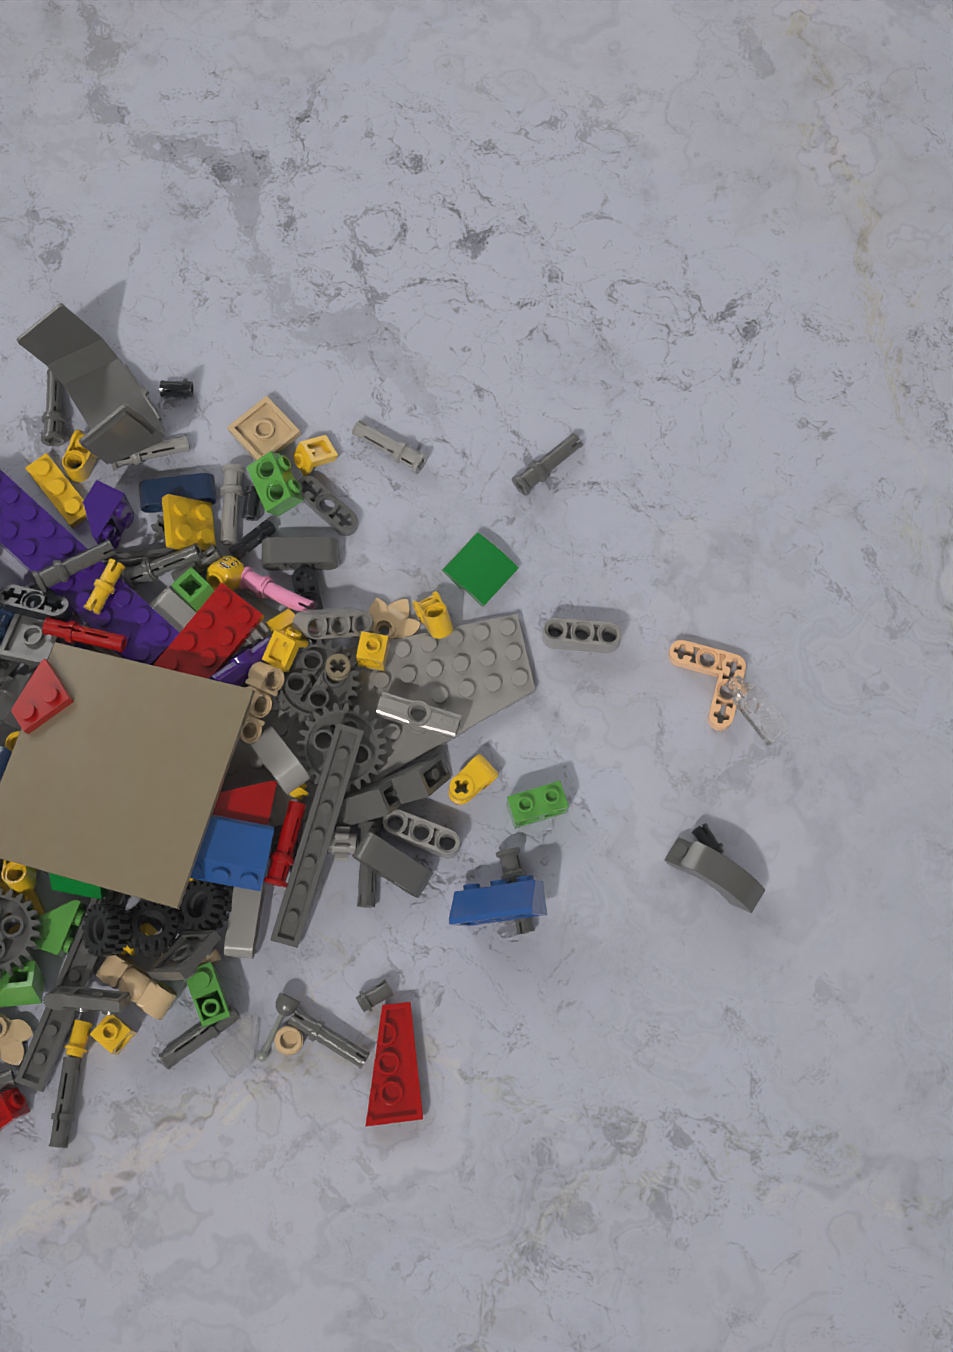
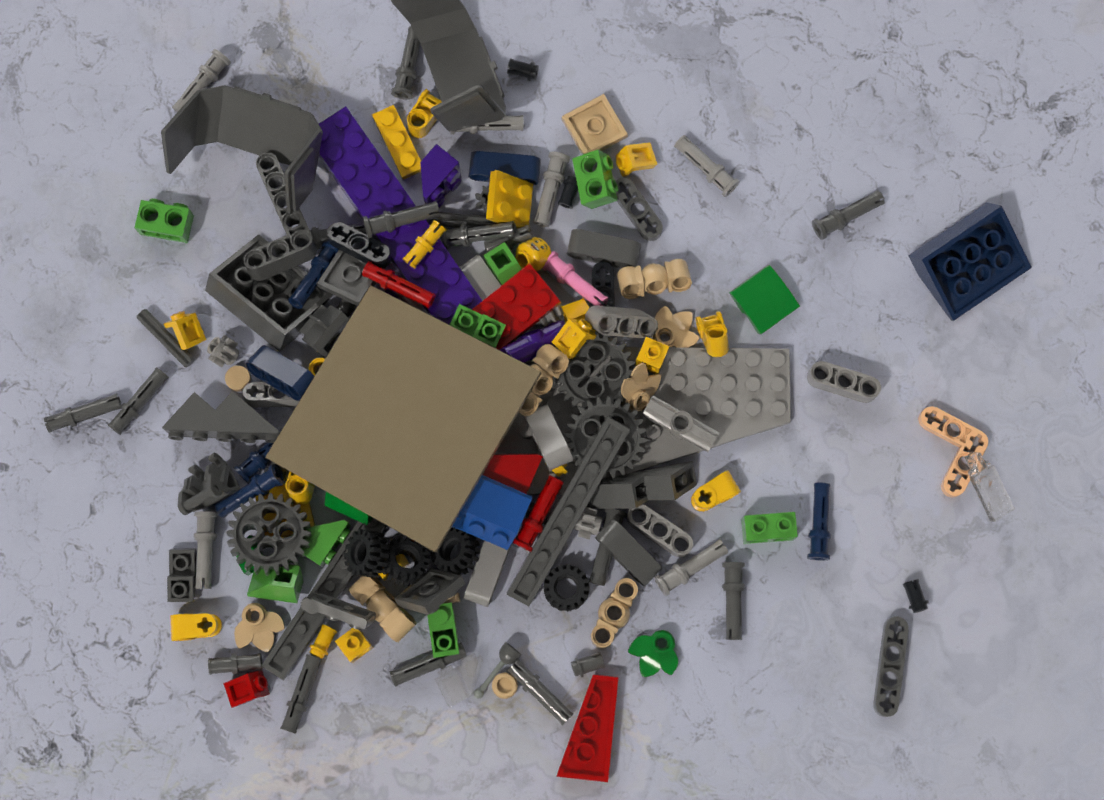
camera: 15 degrees right, 5 degrees up
(41, 698) = (349, 334): red wing -> none
(179, 658) = (477, 325): none -> bright green slope
(252, 539) = (563, 226): black axle -> none
(329, 901) = (580, 580): none -> black tyre
(338, 658) = (619, 357): dark tan bush -> none
(359, 572) = (654, 279): none -> tan piece
(366, 686) = (640, 387): none -> tan plate
(396, 920) = (620, 602): none -> tan piece
(442, 970) = (652, 656): none -> green plate
(454, 874) = (680, 573): none -> light grey pin
(498, 902) = (716, 608): blue slope -> none
(591, 799) = (819, 534): none -> dark blue pin
(684, 483) = (971, 260): none -> dark blue slope
(699, 922) = (895, 667): none -> dark grey beam
(717, 871) = (917, 625): dark grey arch -> none

